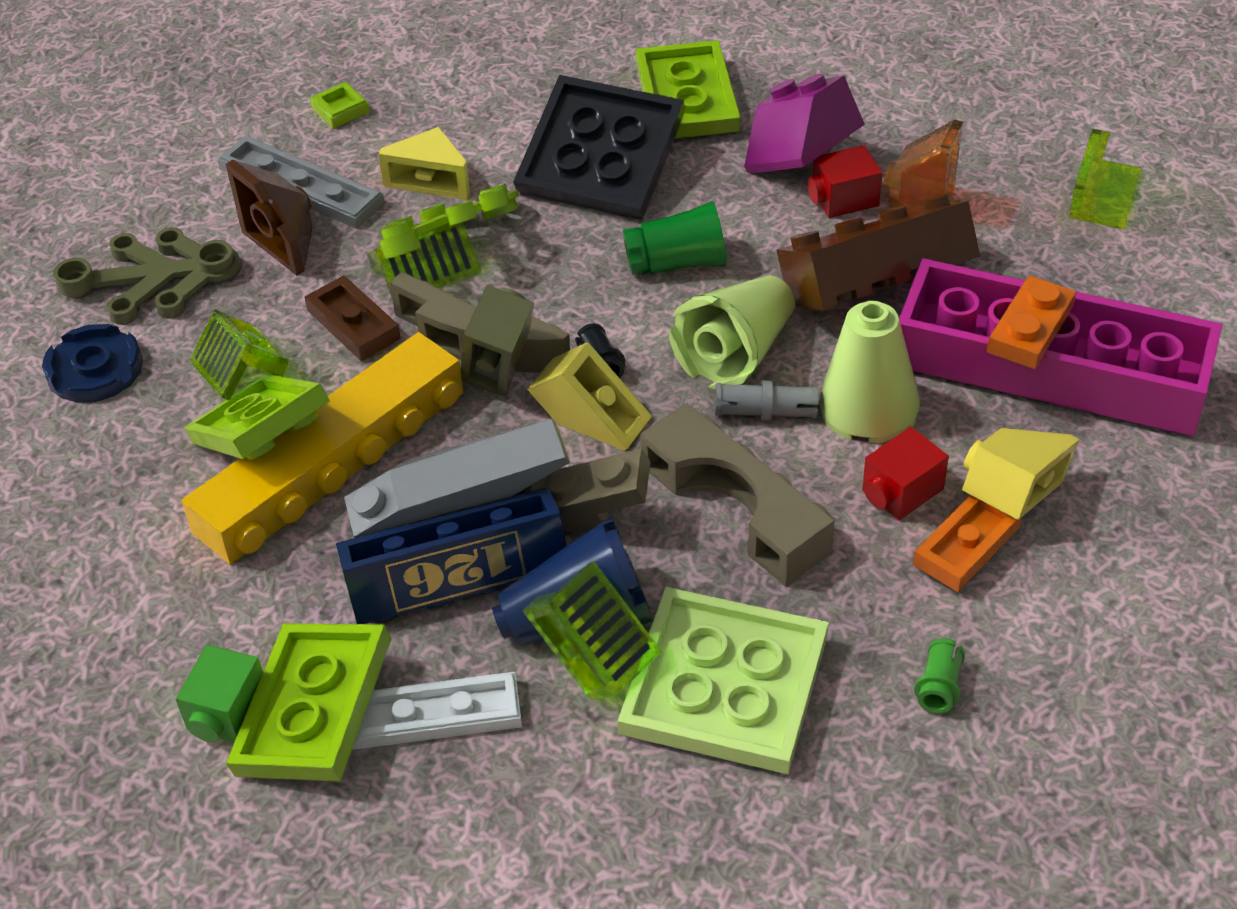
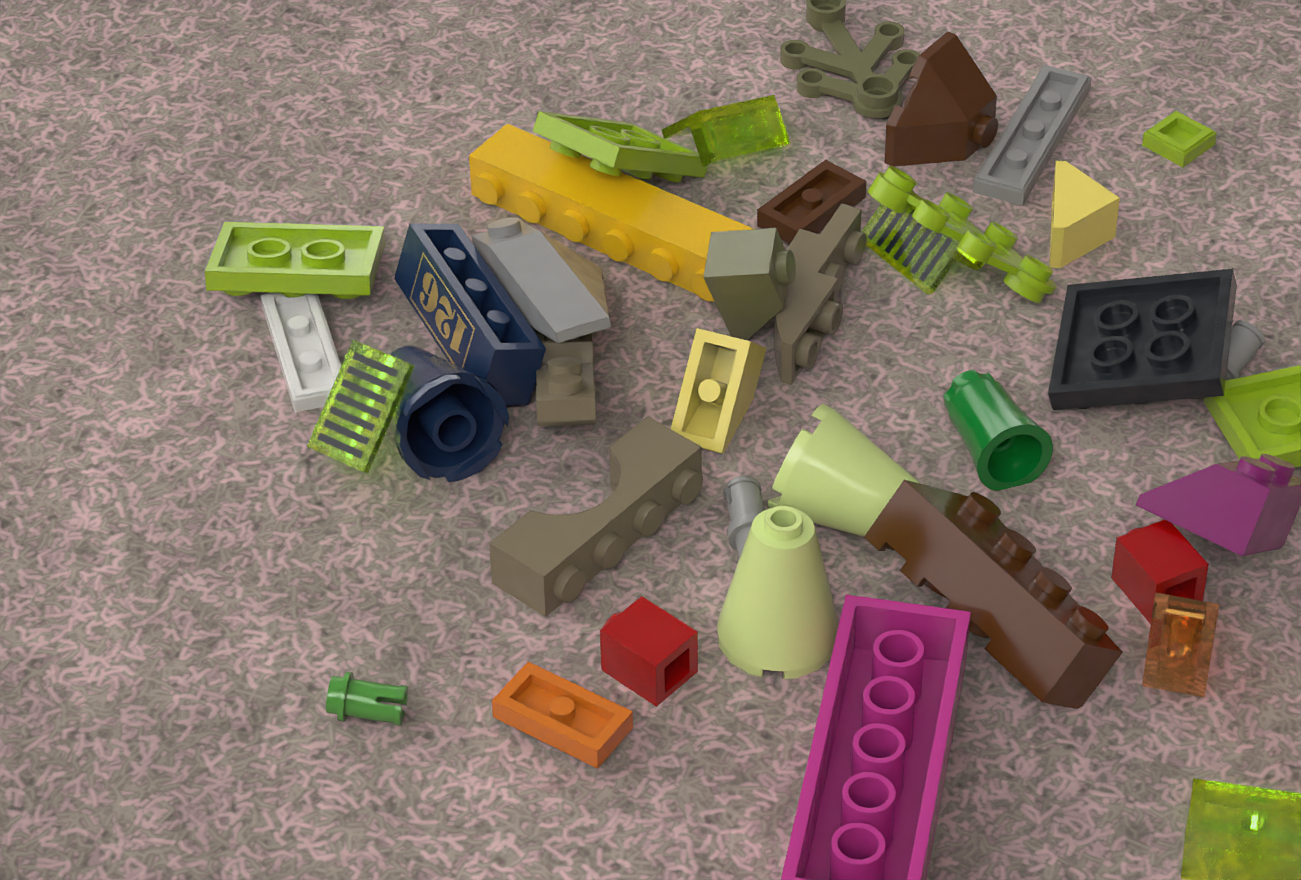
camera: 80 degrees right, 5 degrees down
(95, 374) = (715, 63): dark blue tile -> none
(218, 693) = (299, 197): bright green brick -> none
(597, 338) = (800, 394): black pin -> none
(726, 680) = (349, 535): yellowish green plate -> none
(1018, 468) = (653, 737): light yellow slope -> none
(1031, 322) = (863, 707): orange plate -> none

